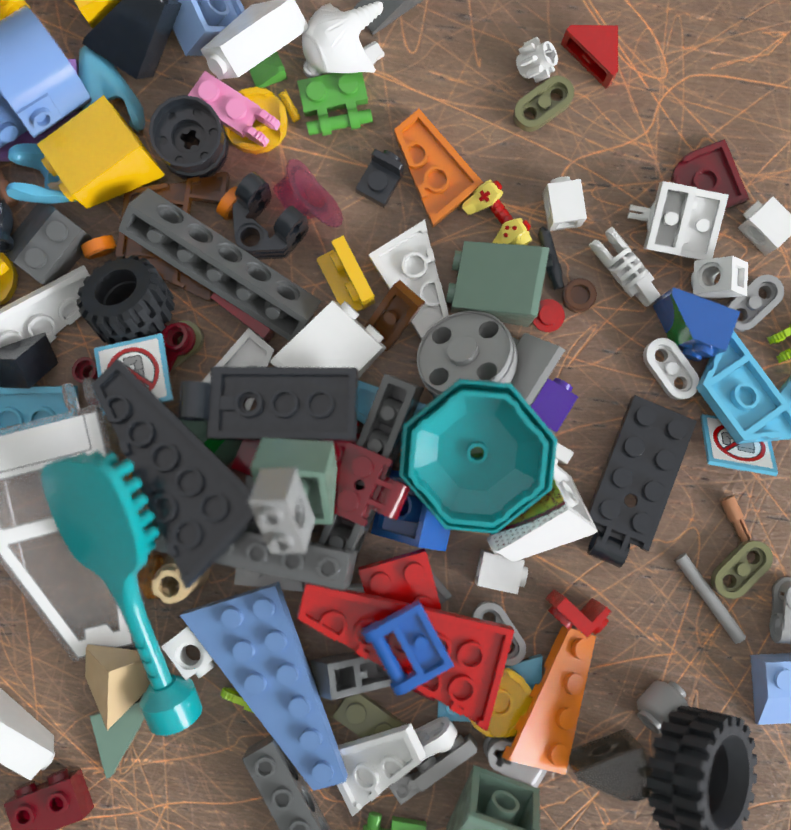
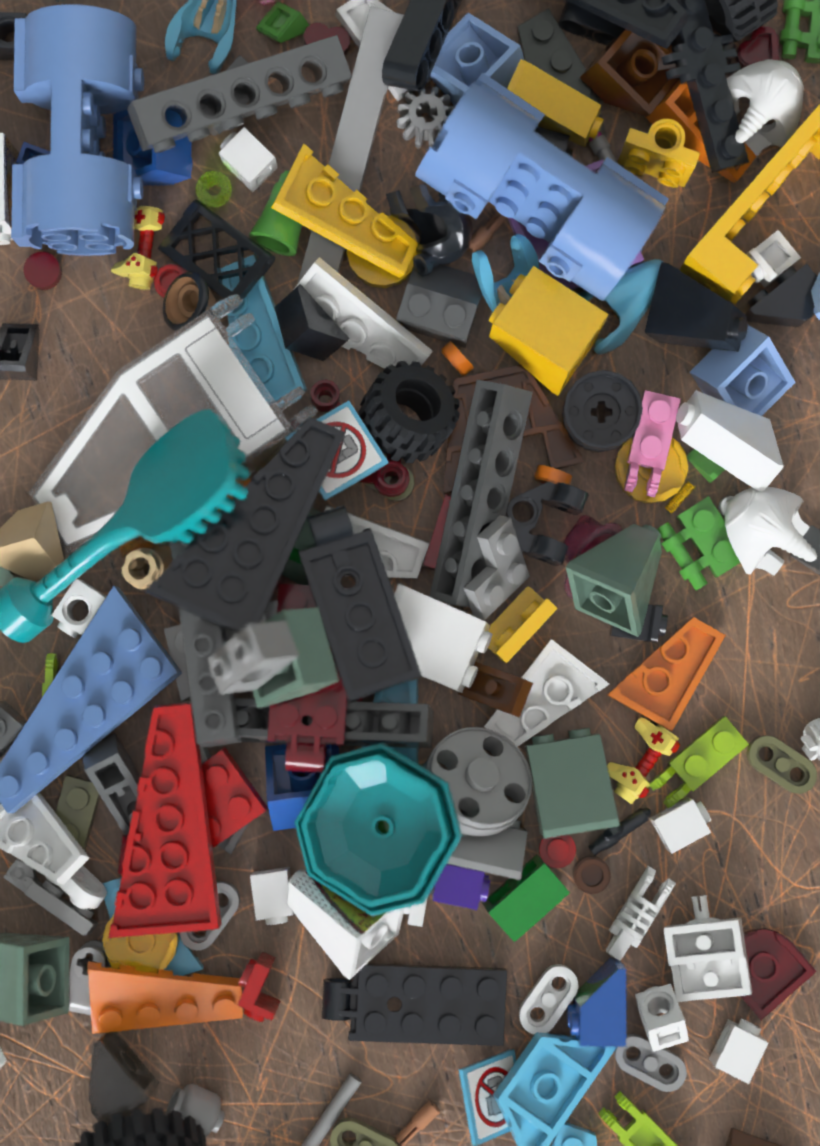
camera: 75 degrees right, 0 degrees up
(294, 271) = (504, 568): none -> light grey plate
(337, 180) = (617, 577): none -> sand green slope
(418, 642) = (172, 837): blue plate -> none
(515, 169) = (701, 759): none -> lime hinge
(583, 361) = (523, 902): none -> green hinge

